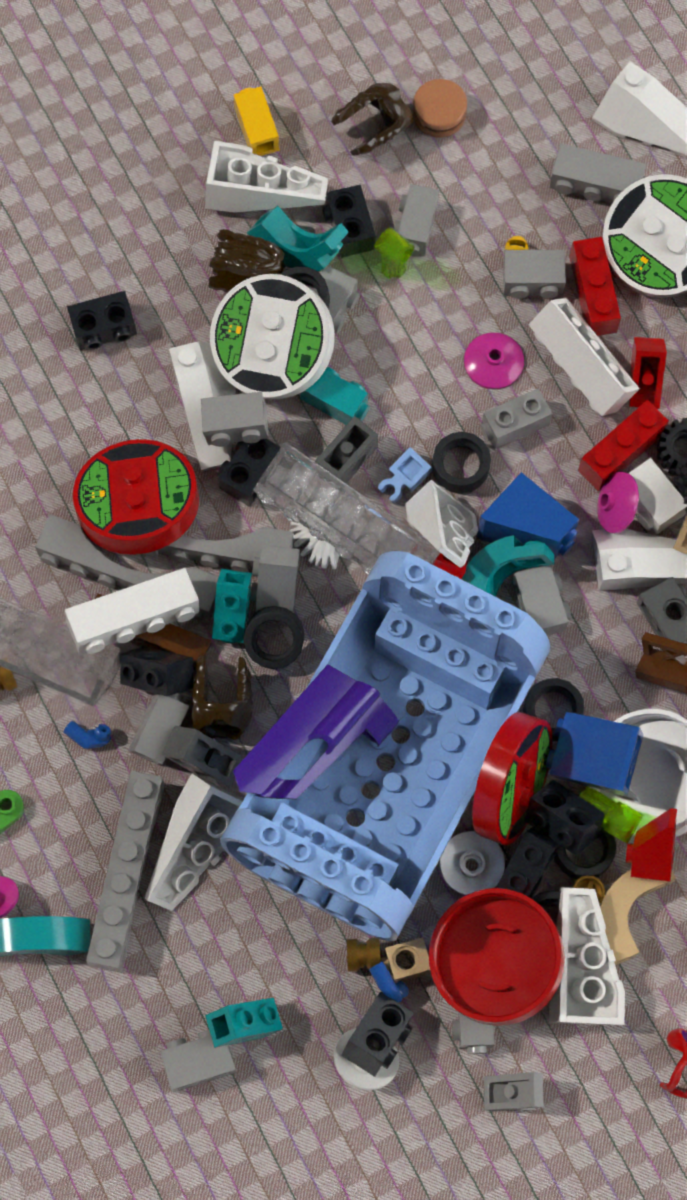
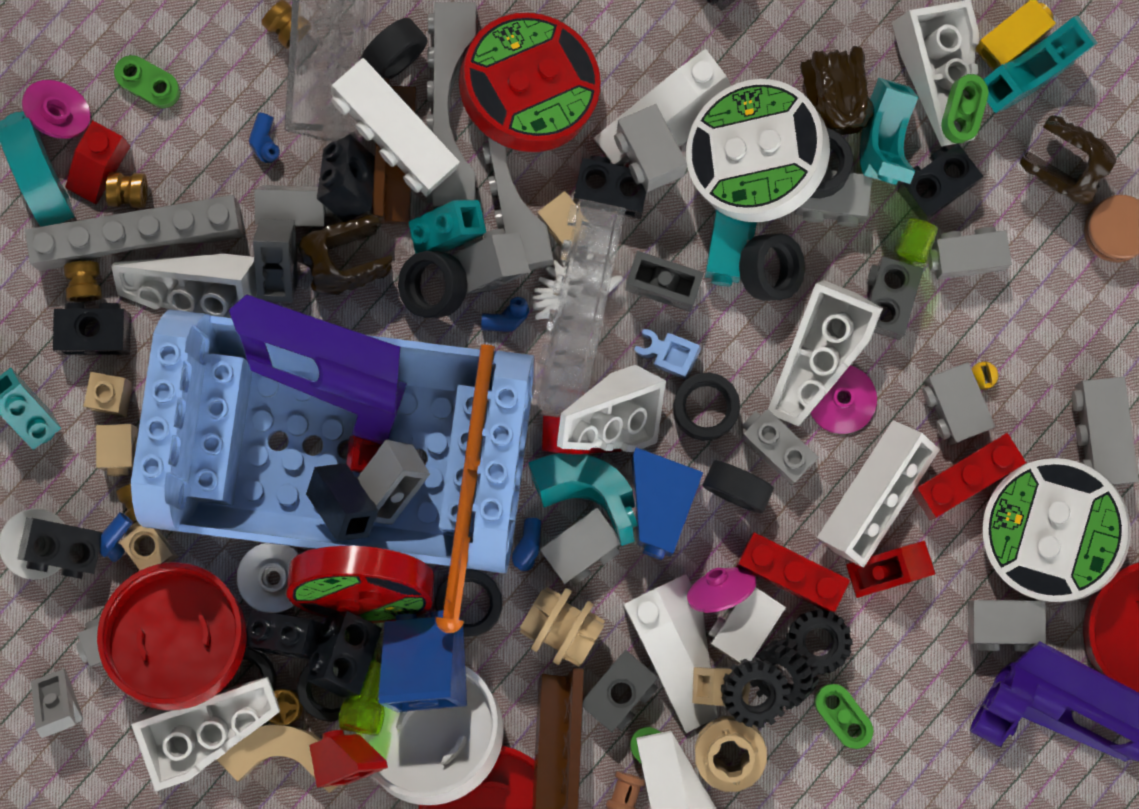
camera: 70 degrees right, 10 degrees up
(48, 883) = (93, 159): none -> red slope
(58, 591) = (395, 48): none -> black tyre
(84, 866) = (126, 189): none -> pearl gold wheel
(149, 933) = (83, 283): none -> pearl gold wheel
(199, 960) = (111, 338): none -> black brick
(258, 515) = (555, 217): none -> tan brick
(259, 945) = (108, 394): none -> tan brick
(286, 112) = (1039, 65): none -> teal arch
(303, 173) = (964, 111): none -> bright green plate
(309, 956) = (116, 448): none -> tan brick
(326, 591) = (509, 319): none -> blue arm
(380, 371) = (791, 267): none -> black tyre
(399, 745) = (360, 453): none -> red tile
(431, 727) = (393, 479): none -> light grey brick
(434, 286) = (899, 300): none -> dark grey brick
(436, 767) = (341, 502): none -> black brick
(448, 350) = (826, 344): none -> white wedge
(513, 673) = (450, 622): none -> orange bar
(539, 456) = (738, 486): none -> black tyre
(608, 632) = (562, 626): none -> tan piece

